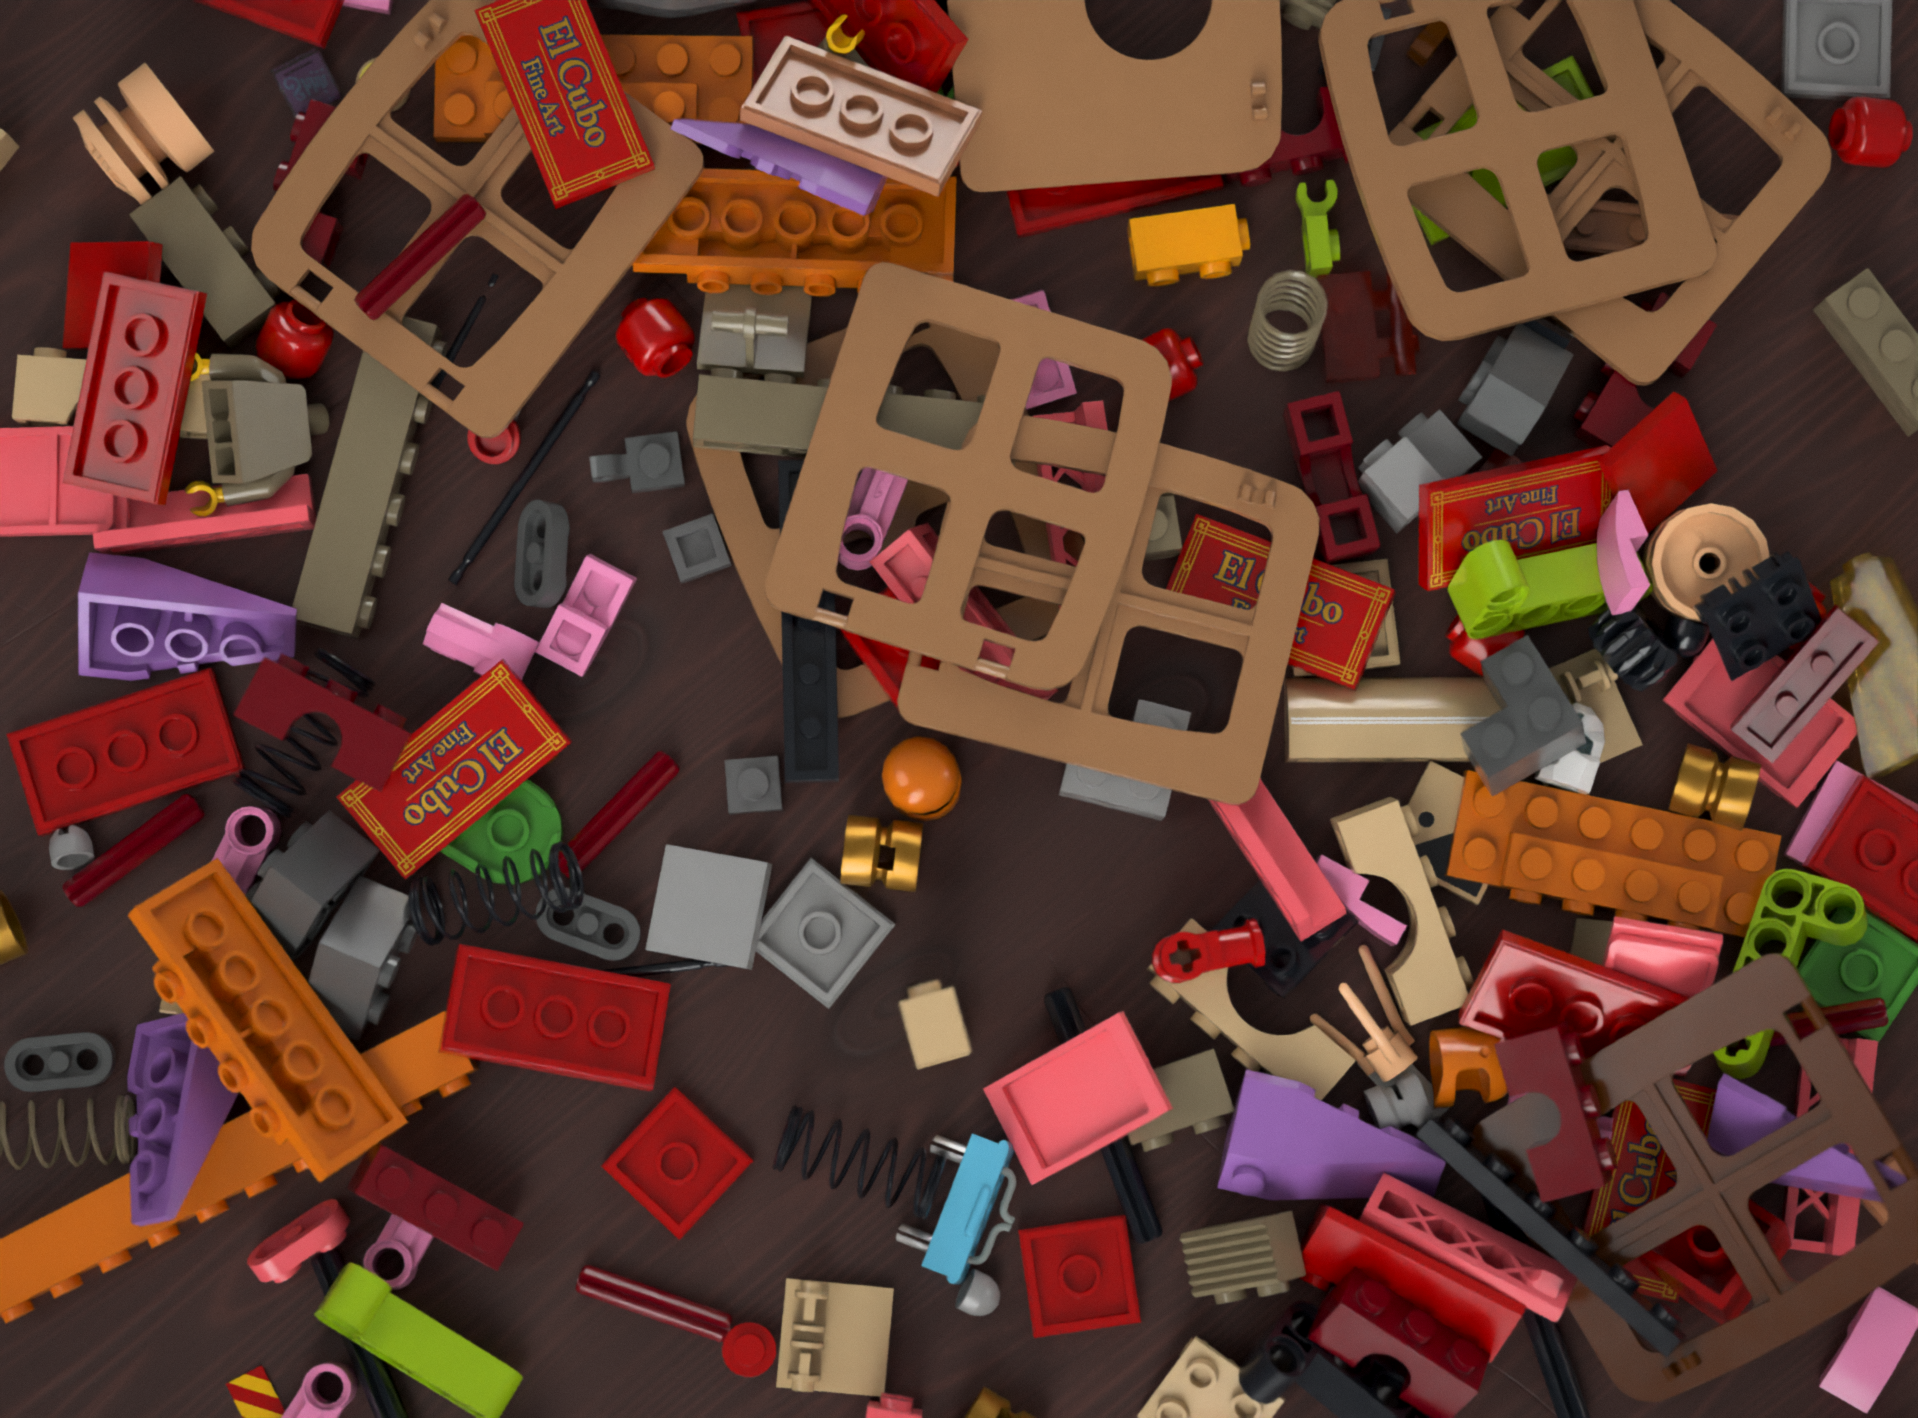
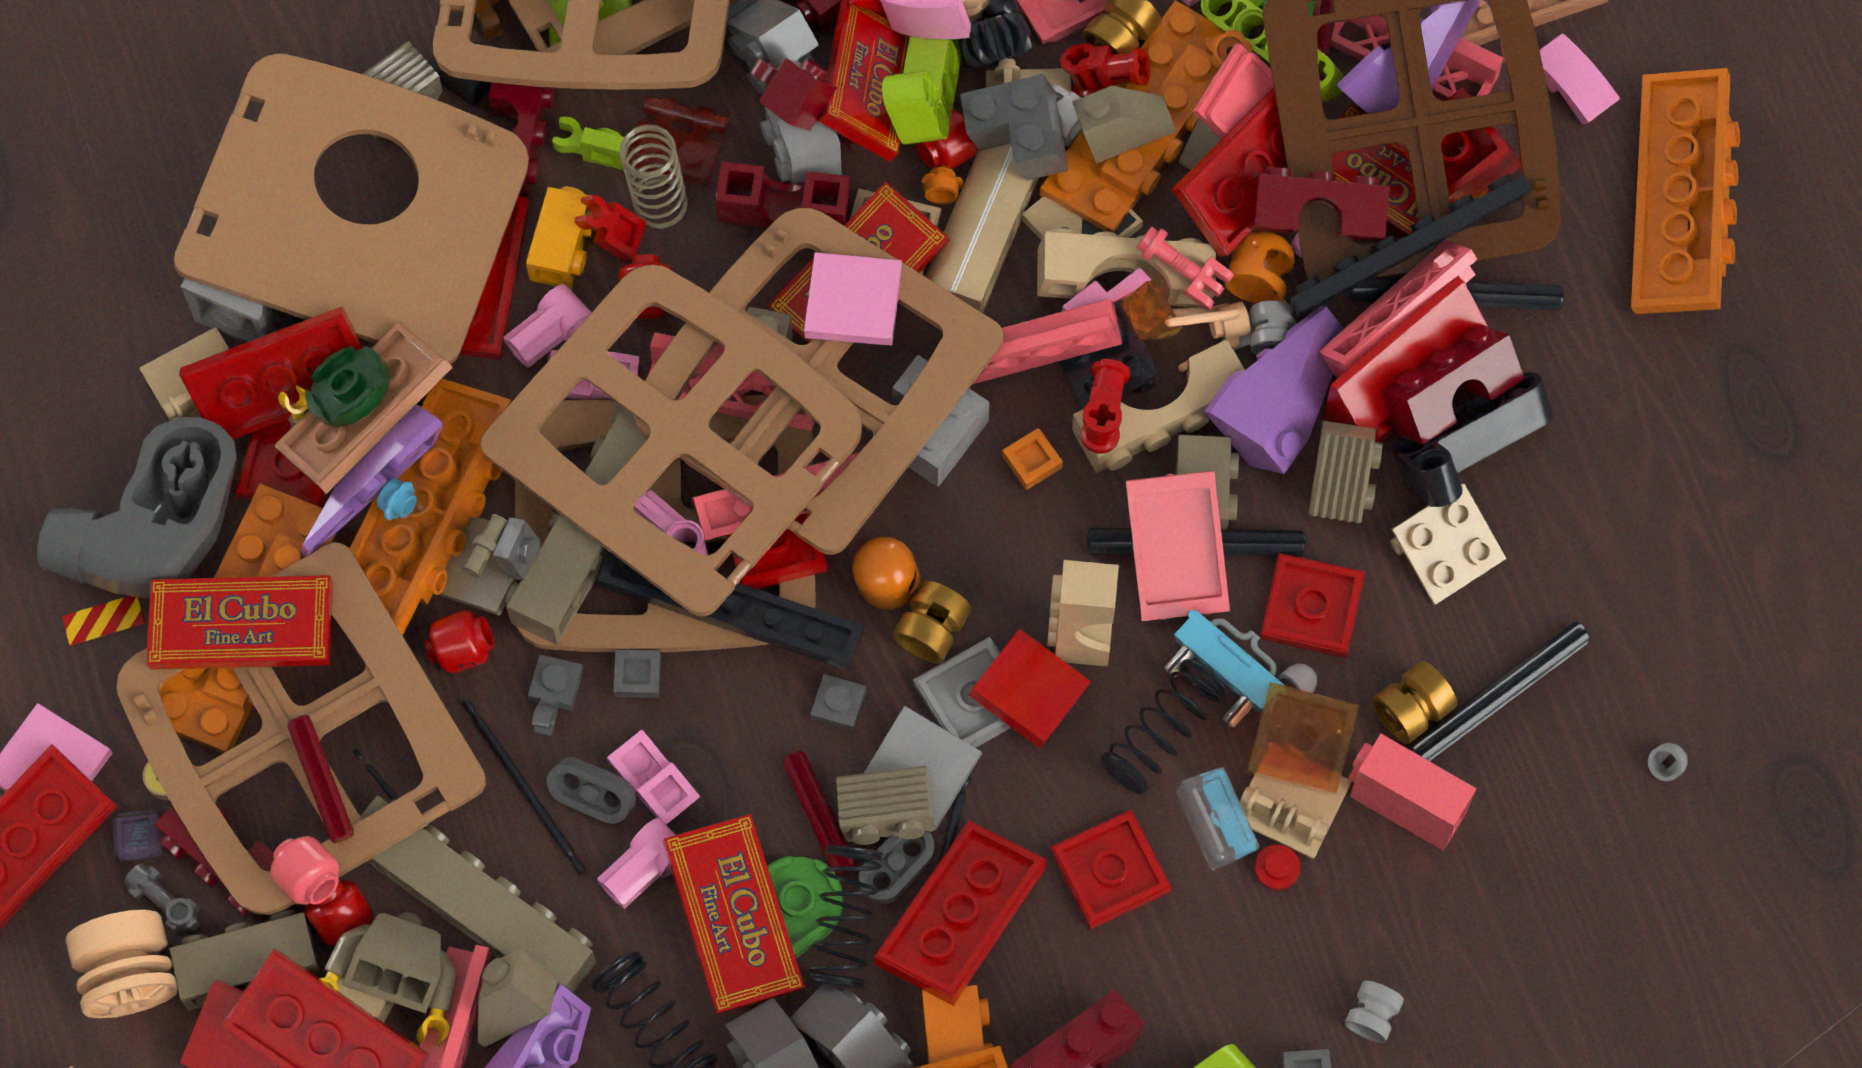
camera: 65 degrees left, 15 degrees down
(231, 167) = (180, 912): none -> flat silver bar
(263, 571) = (513, 996): none -> dark tan slope
(283, 694) = (684, 958): dark red arch -> none
(306, 286) = (305, 870): none -> coral head
(496, 449) = (490, 799): red plate -> none
(640, 887) = (885, 804): none -> dark tan brick
(653, 1303) = (1213, 927): dark red axle -> none
(764, 359) = (517, 549): none -> flat silver plate
(780, 1261) = (1217, 818): none -> clear slope
(782, 198) = (397, 499): none -> medium azure plate
(846, 994) = (1029, 688): none -> red tile
(875, 88) = (348, 386): none -> dark green tile
(893, 1326) = (1301, 739): none -> clear orange brick
(1084, 282) = (555, 320): none -> bright pink piece
(1128, 890) = (1032, 459): none -> orange plate
(1218, 613) = (853, 299): none -> bright pink tile
(1219, 299) = (616, 227): none -> red plate
(1354, 959) = (1148, 312): none -> clear orange bracket
(1429, 653) = (941, 185): none -> orange plate
(1431, 933) = (1200, 278): none -> coral hinge
(1440, 444) = (795, 90): none -> dark red brick
(1577, 836) = (1122, 120): none -> dark tan slope
(1643, 785) = (1104, 68): none -> red connector
(1742, 924) = (1227, 40): none -> orange plate

